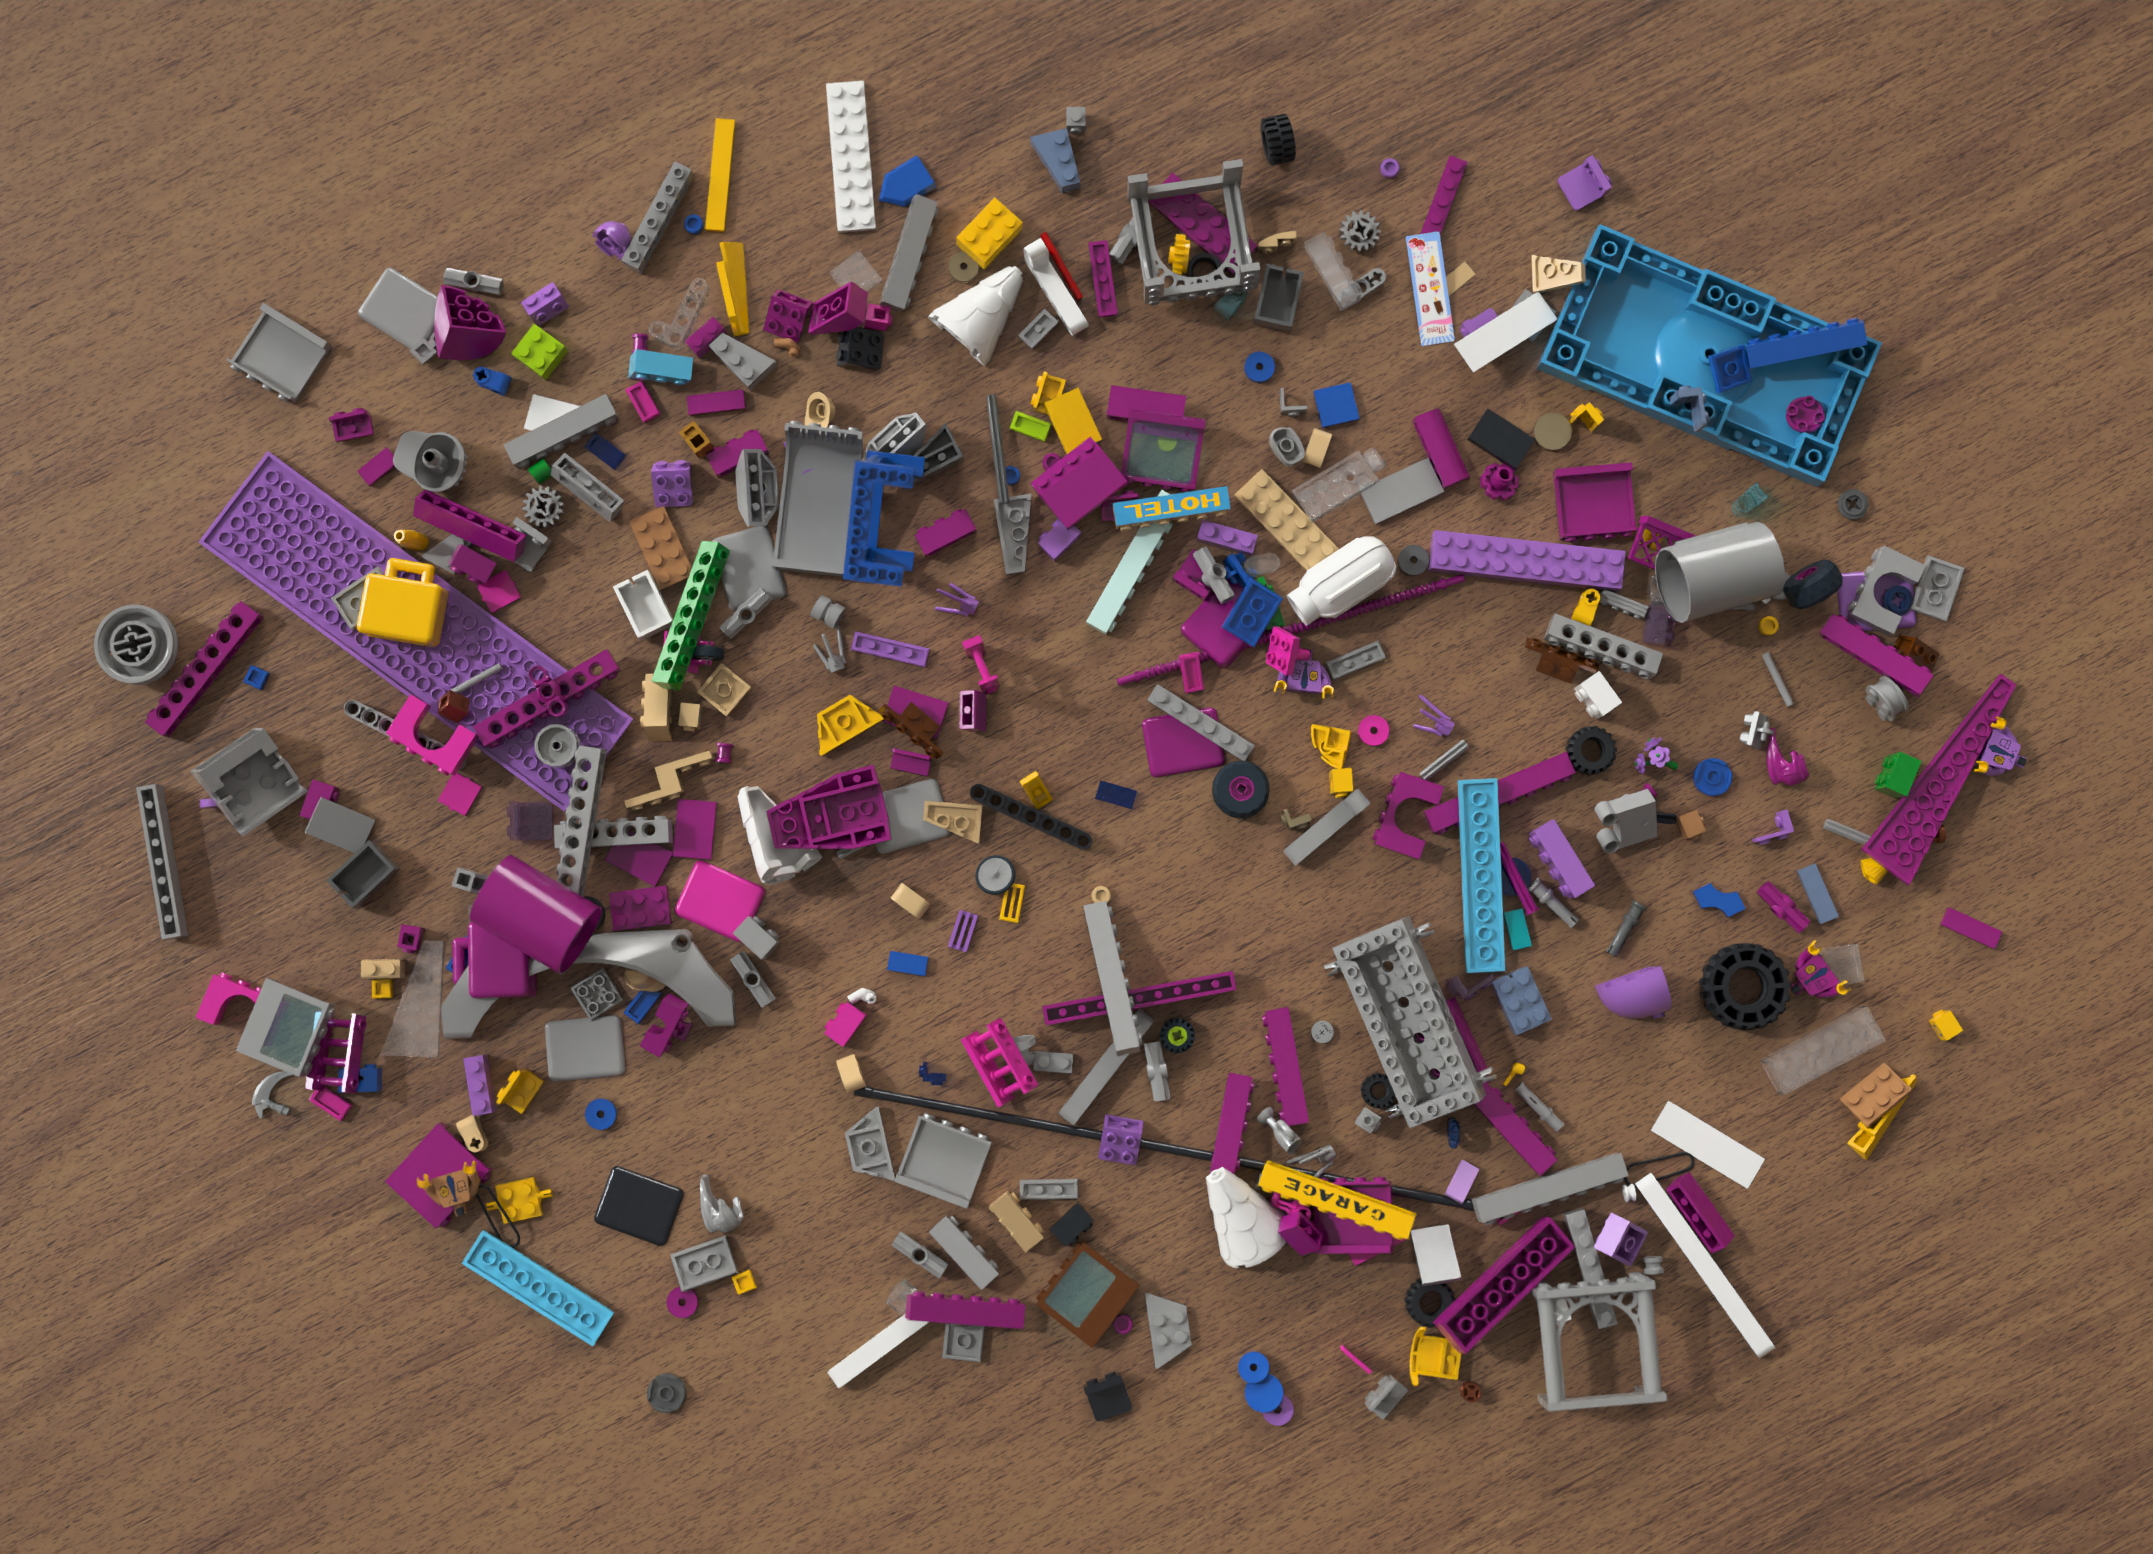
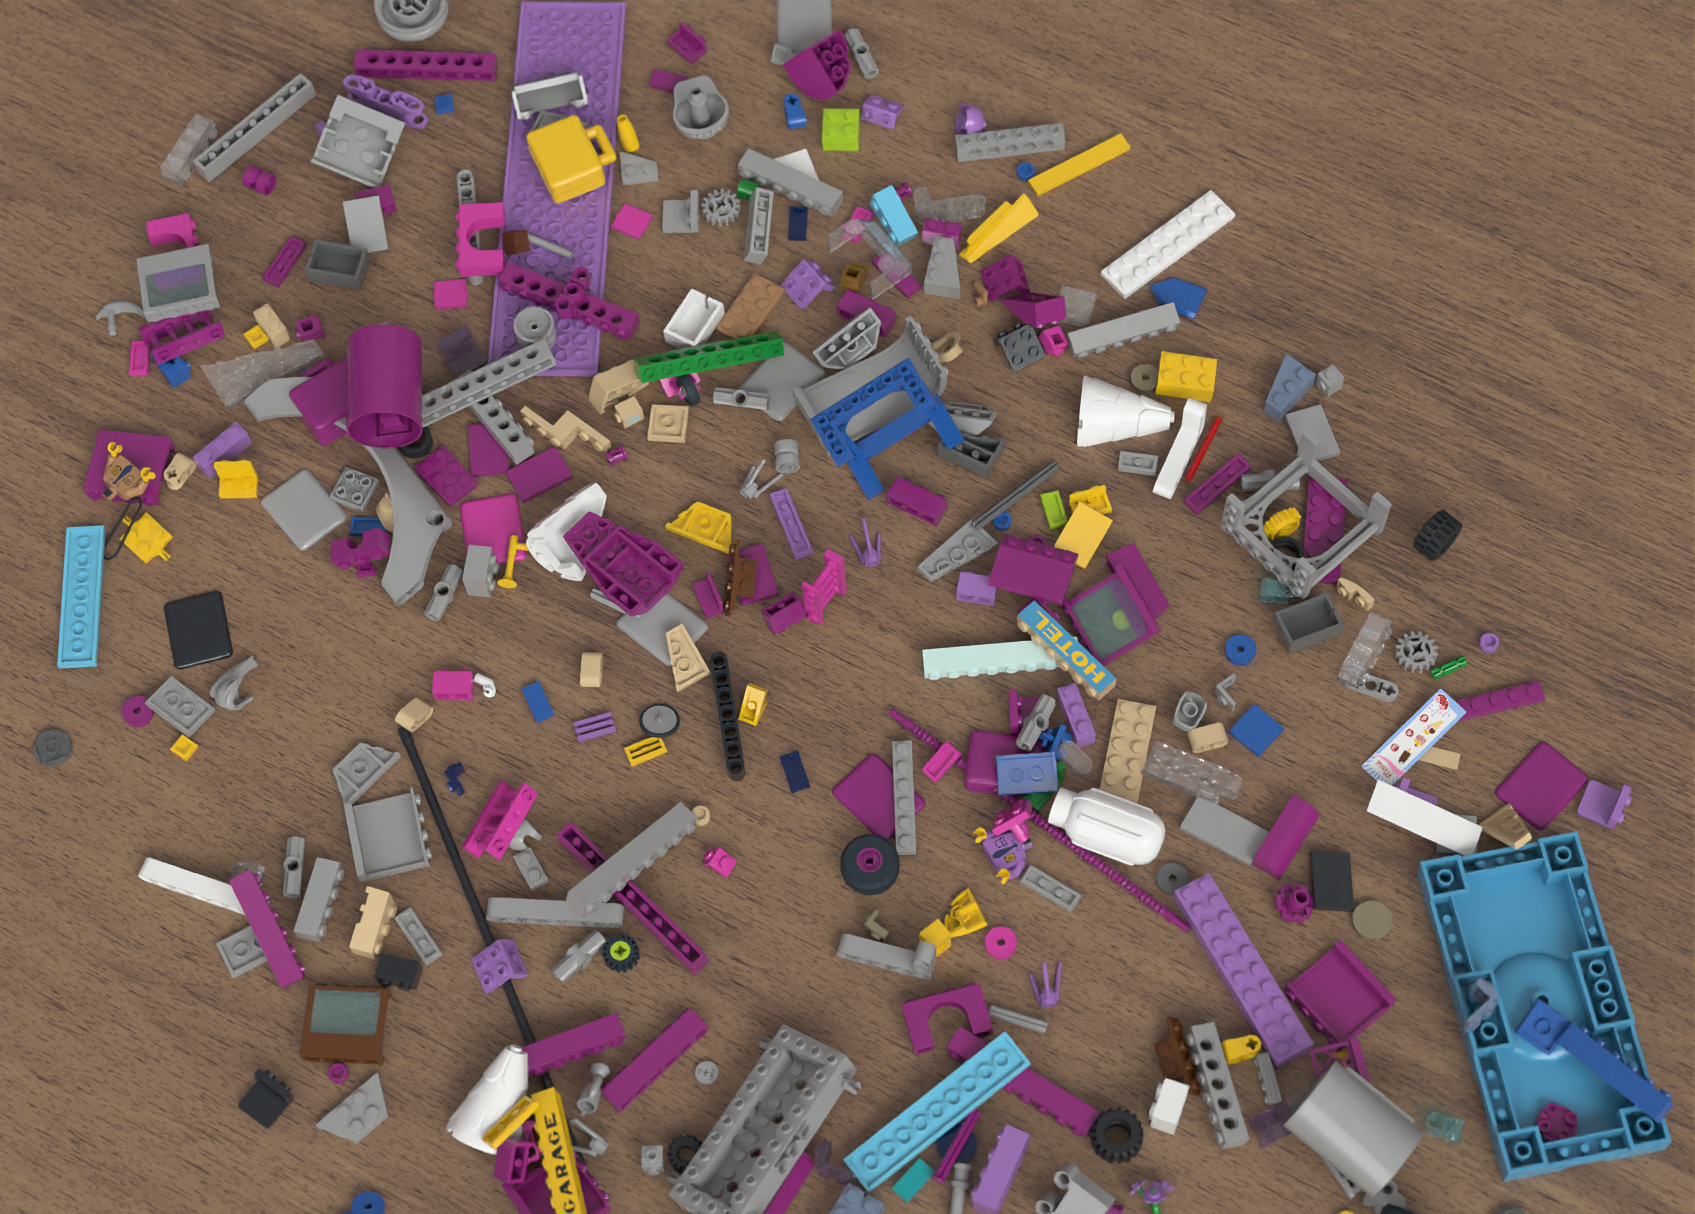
camera: 60 degrees right, 20 degrees down
(141, 934) = (187, 148): none -> clear brick
(224, 889) = (259, 180): none -> magenta wheel
(234, 720) = (398, 103): none -> medium lavender piece
(318, 580) = (549, 94): none -> light grey windscreen
(321, 918) = (284, 262): none -> magenta tile
(469, 525) = (667, 165): magenta brick -> none
(471, 563) = (638, 184): magenta brick -> none
(609, 1110) = (260, 560): blue piece -> none
(710, 395) = (893, 261): none -> clear windscreen
(750, 894) = (507, 581): none -> yellow piece
(1109, 168) = (1316, 422): none -> light grey tile
(1152, 907) = (719, 861): none -> dark pink bracket
(1273, 1217) = (509, 1122): none -> yellow tile
(1388, 216) = (1448, 667): none -> green axle
(1533, 219) = (1541, 785): none -> magenta piece
(1589, 415) = (1405, 927): yellow bracket -> none

